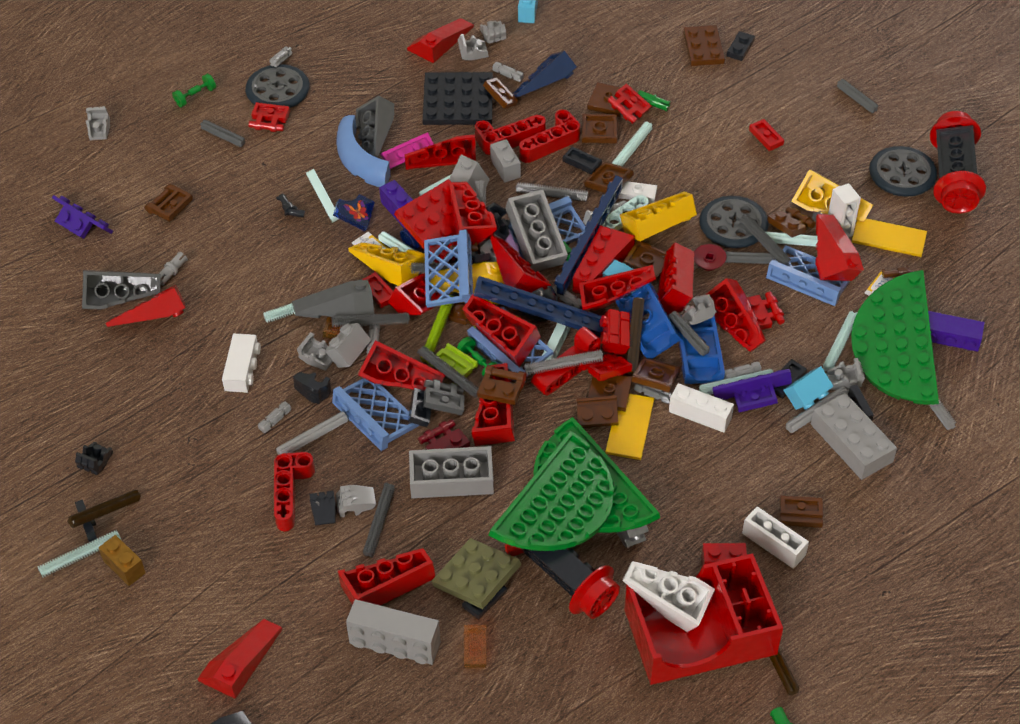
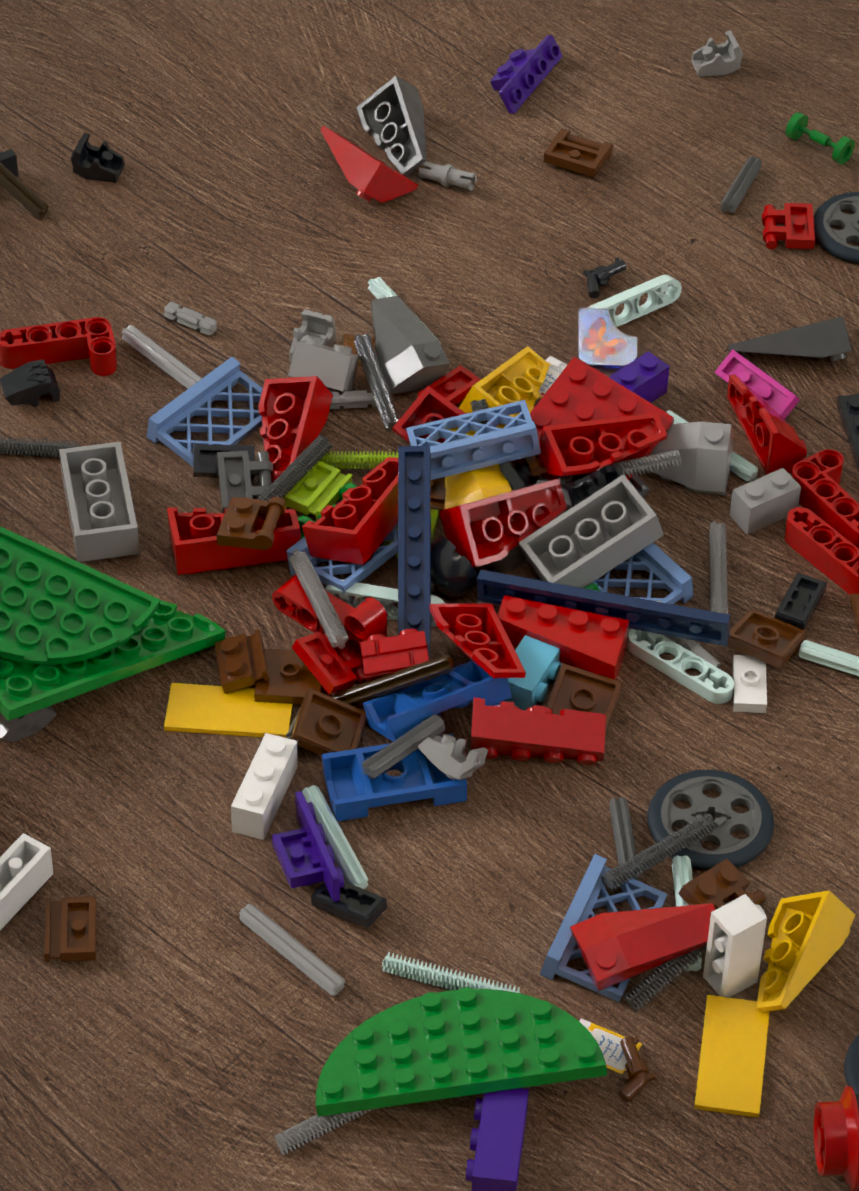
camera: 80 degrees right, 5 degrees down
(241, 363) = (279, 267): white brick -> none
(310, 388) = (242, 342): black hand -> none
(355, 498) = (47, 412): light grey hand -> none
(357, 160) = (732, 326): medium blue brick -> none
(450, 439) = (157, 496): dark red plate -> none
(658, 215) = (675, 698): yellow wedge -> none
(709, 256) = (605, 781): dark red piece -> none
(736, 314) = (500, 812): red wedge -> none
(743, 370) = (360, 844): light grey axle -> none
(759, 308) = (500, 859): red plate -> none
(808, 388) = (323, 924): medium azure brick -> none
(846, 375) = (368, 985): light grey hand -> none
(853, 436) = (230, 992): light grey brick -> none
(858, 398) = (300, 1003): black plate -> none

